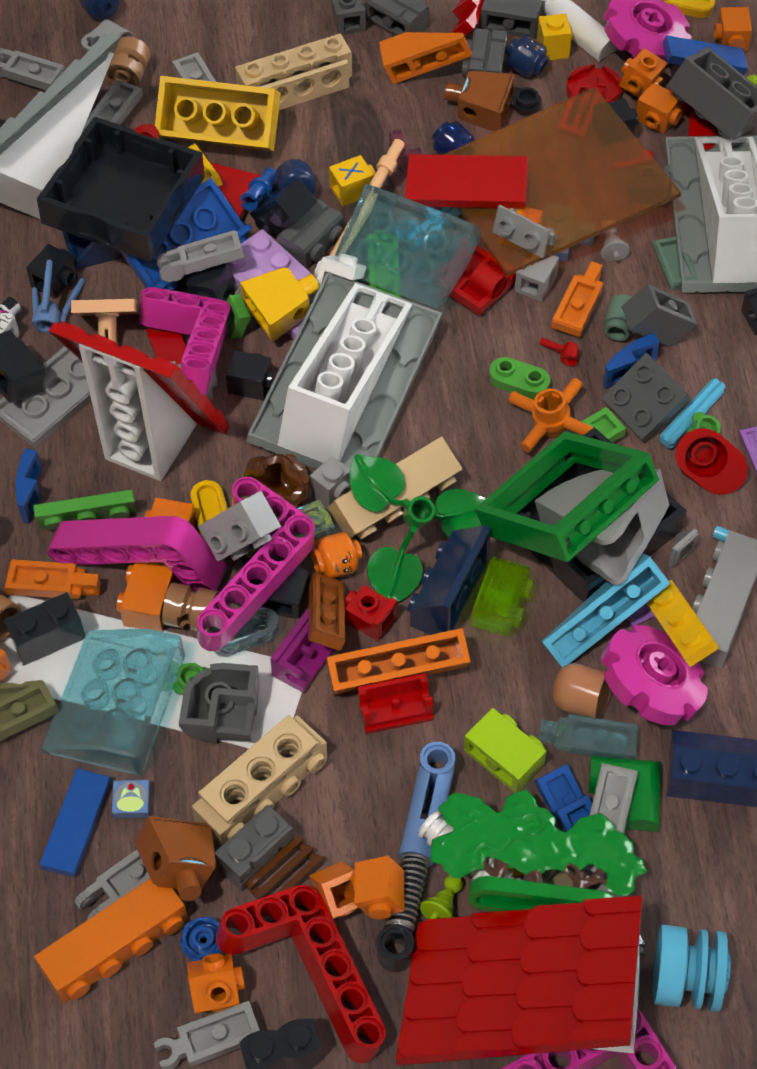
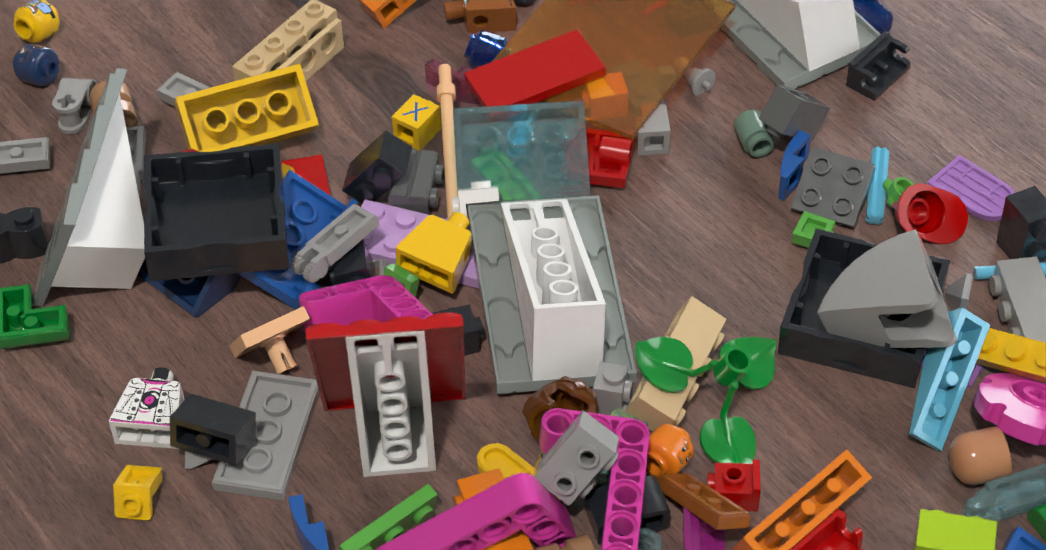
camera: 30 degrees left, 10 degrees down
(48, 312) = (206, 370): medium blue plant -> none
(62, 270) = (180, 327): black brick -> none
(259, 189) = (335, 165): blue pin -> none
(295, 169) = (356, 139): dark blue head -> none
(450, 581) = (791, 420): dark blue slope -> none
(501, 596) = (843, 414): clear neon green brick -> none
(518, 377) = (703, 224): bright green plate -> none
(523, 231) = (623, 92): light grey hinge -> none
(550, 413) = (761, 239): orange bar -> none
(569, 351) = (730, 181): red hand -> none
(579, 301) = (707, 136): orange hinge -> none
(630, 479) = (880, 326): green window -> none
(667, 257) = (748, 69): sand green tile -> none

